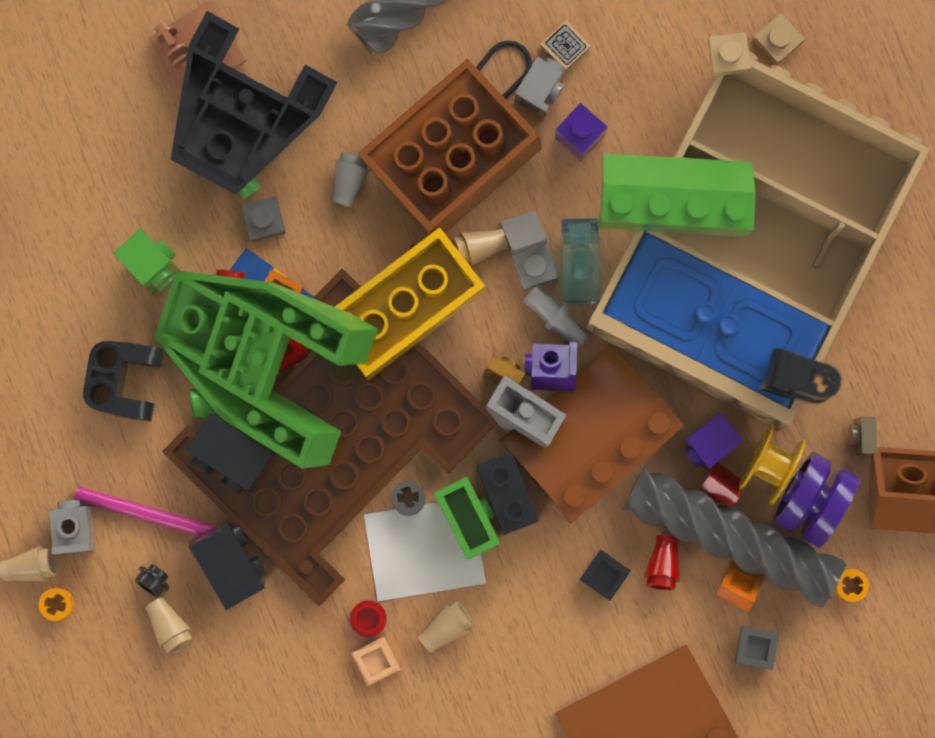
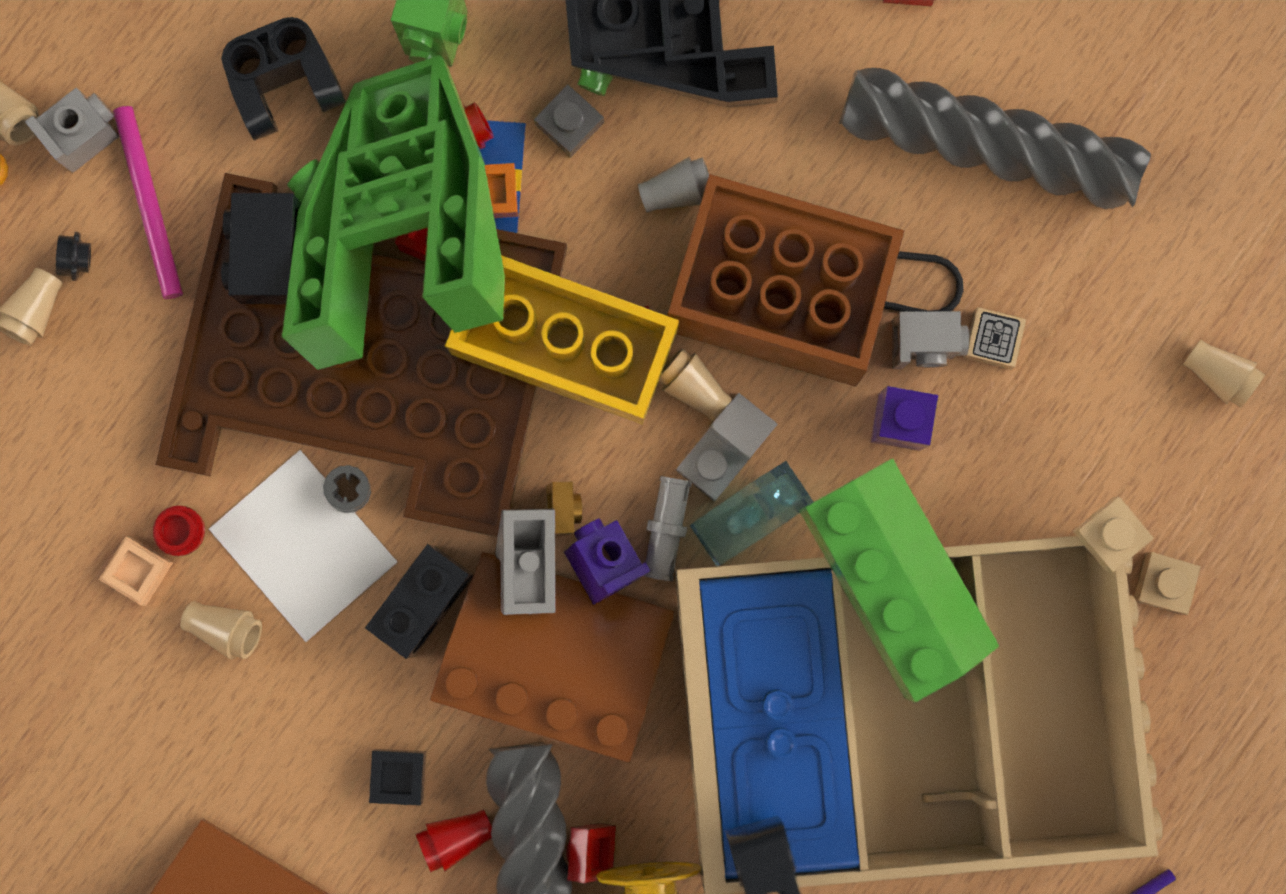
camera: 55 degrees right, 0 degrees up
(228, 564) = (139, 328): black brick -> none
(468, 517) = (360, 573): bright green brick -> none
(711, 442) = (632, 807): dark purple brick -> none

